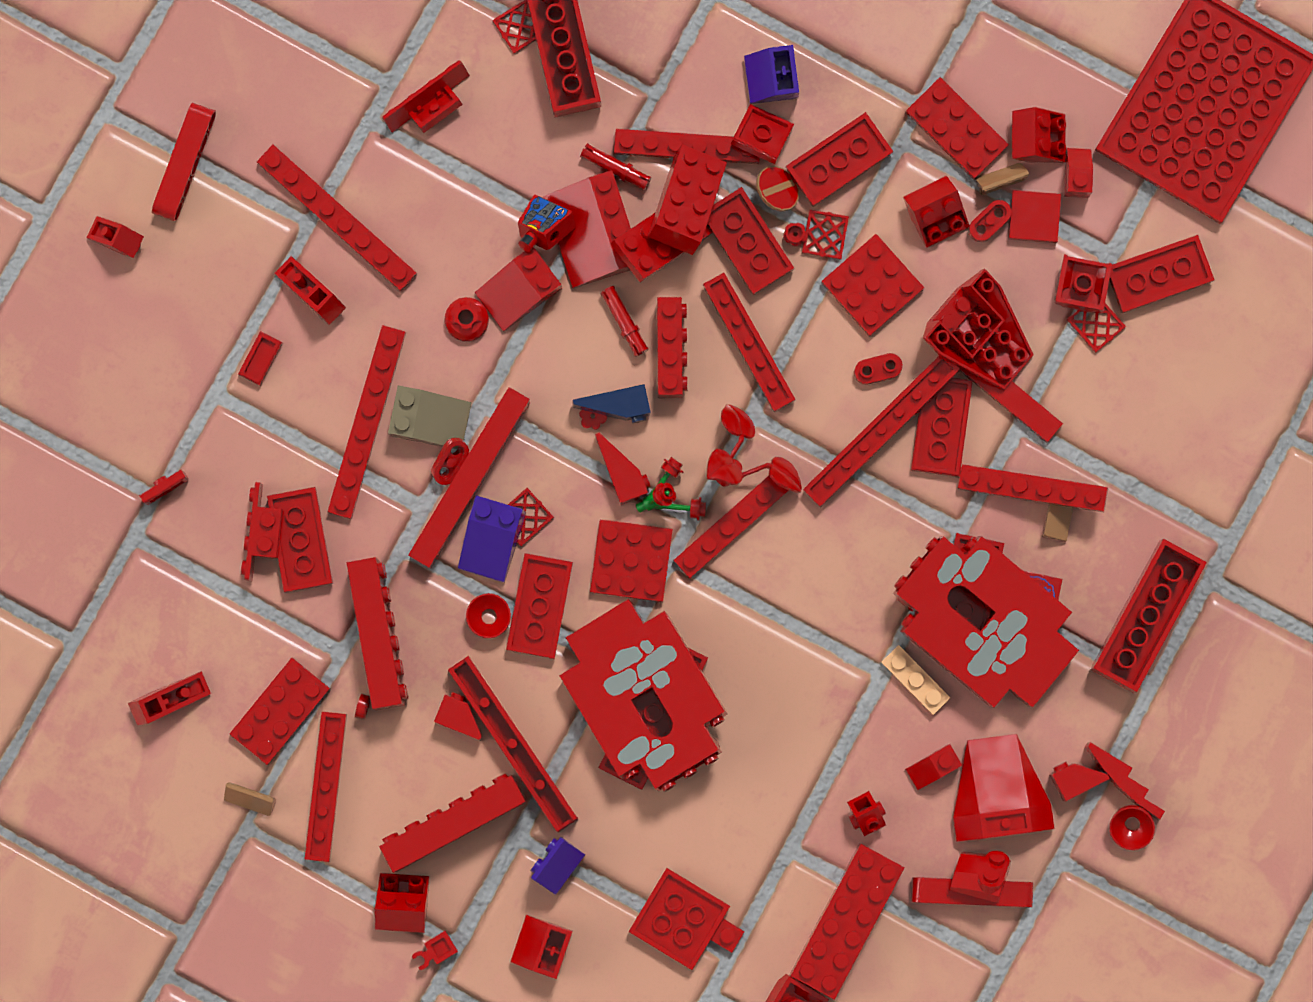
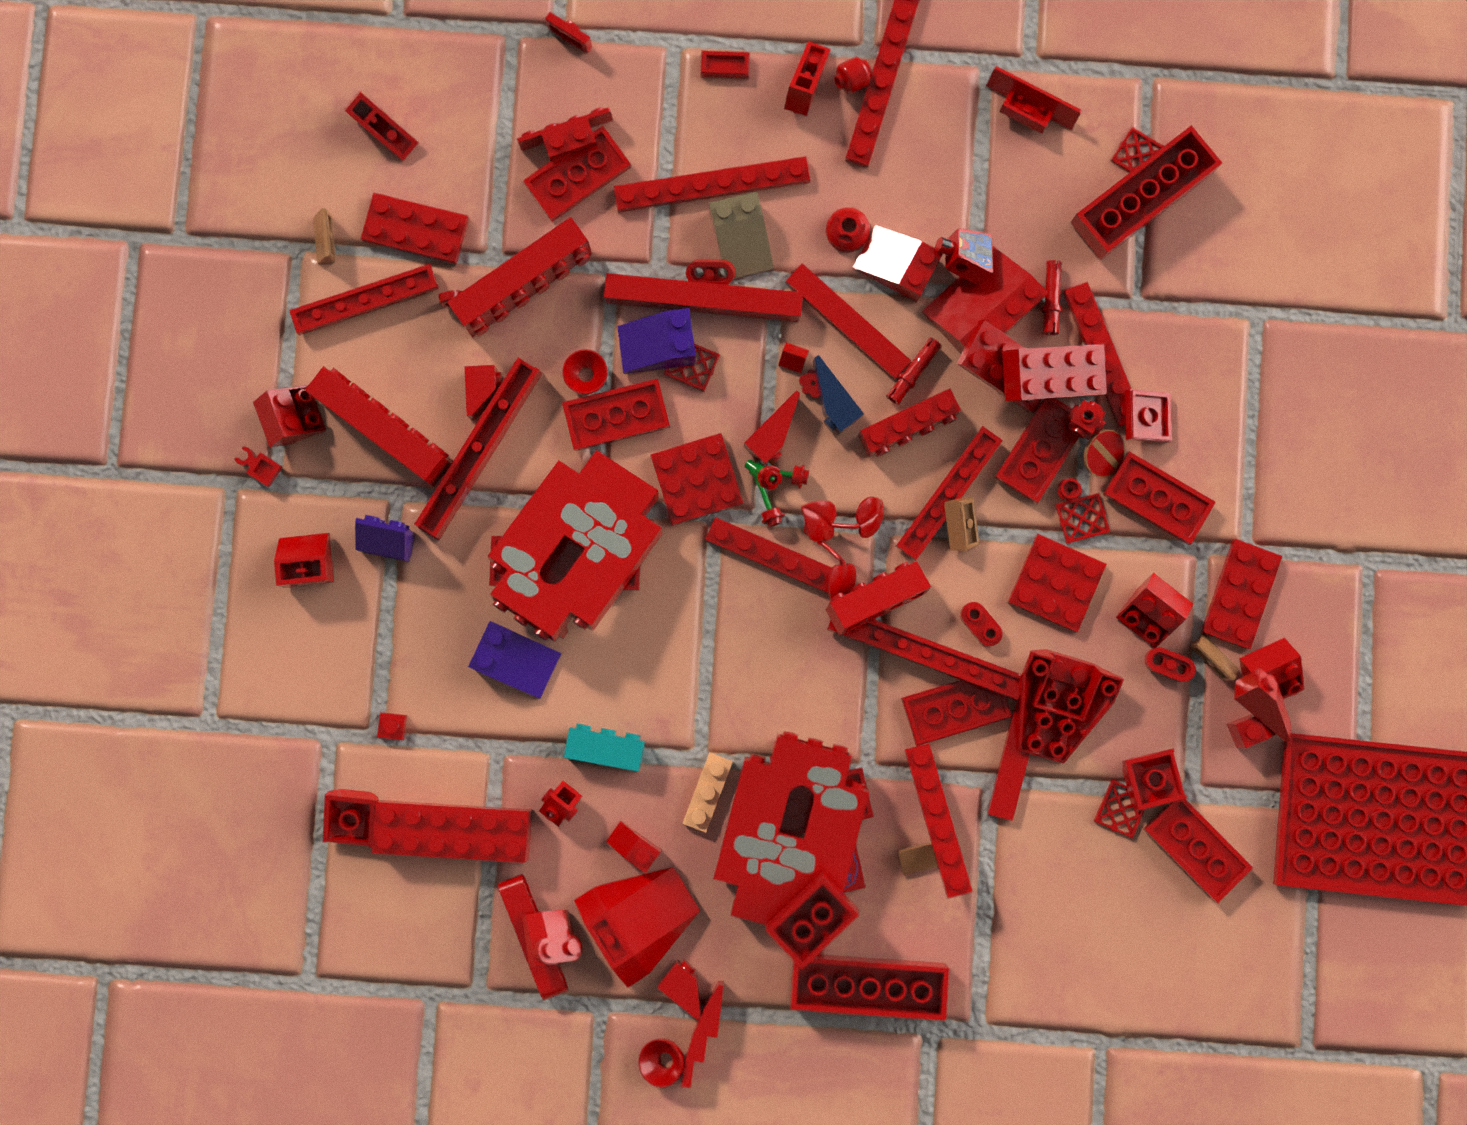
camera: 65 degrees right, 0 degrees up
(328, 248) = (853, 75): none -> red head
(551, 358) = (848, 321): none -> red tile
(561, 422) = (793, 357): none -> red slope
(679, 918) = (386, 674): red plate -> none
(719, 797) = (514, 659): none -> dark purple slope
(746, 199) = (1086, 428): none -> red brick
(772, 75) = (1208, 399): dark purple slope -> none
(781, 344) = (961, 524): none -> medium nougat slope
(814, 449) = (877, 597): none -> red brick
(835, 752) = (604, 747): none -> teal brick
(1034, 216) = (1194, 705): red tile -> none
(1057, 157) = (1263, 699): none -> red slope
(1068, 636) = (812, 920): none -> red brick

